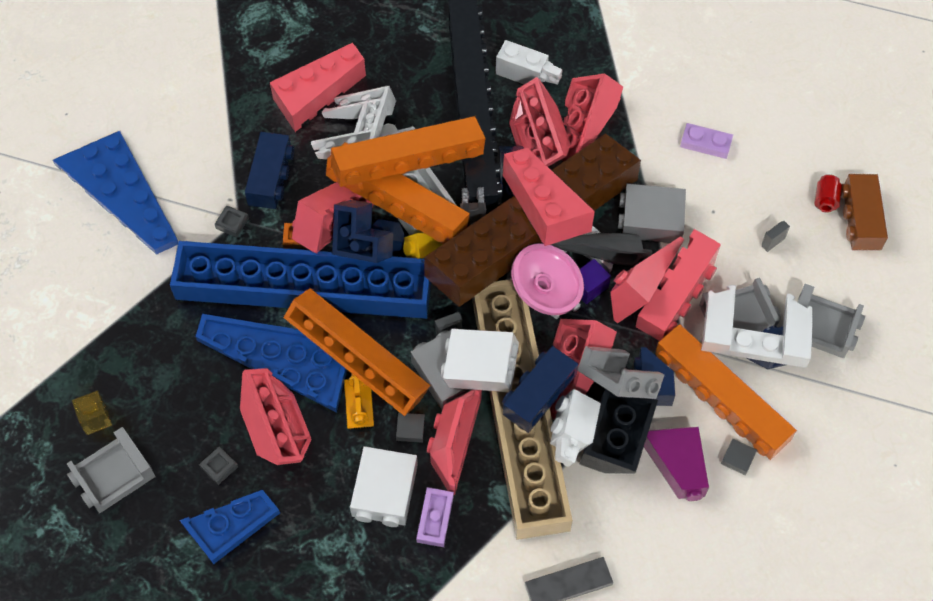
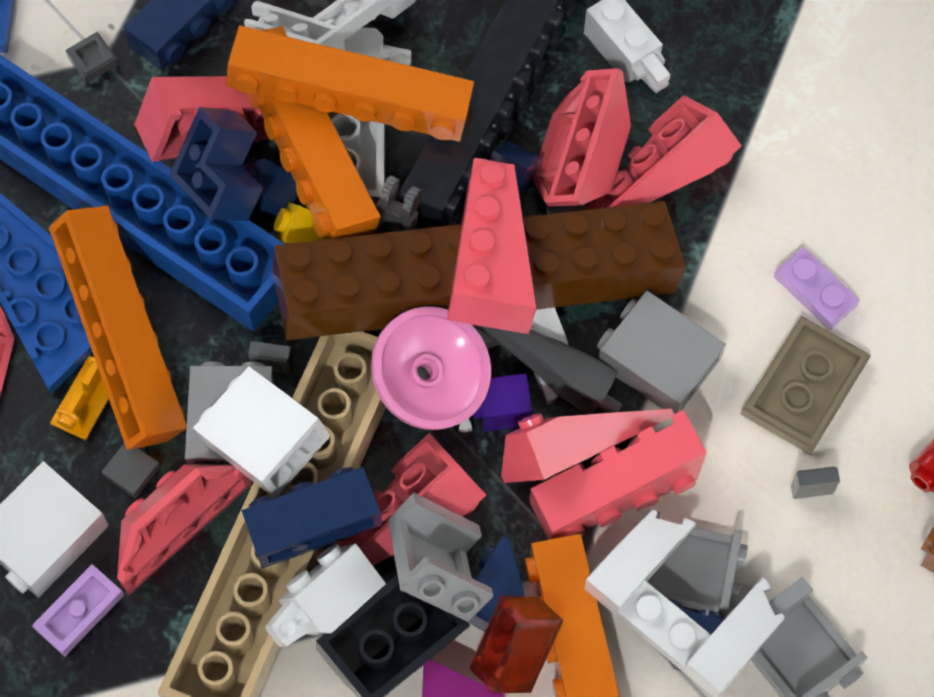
camera: 30 degrees right, 5 degrees up
(687, 397) = (516, 644): none -> clear red brick
(734, 191) = (805, 385): none -> dark tan tile

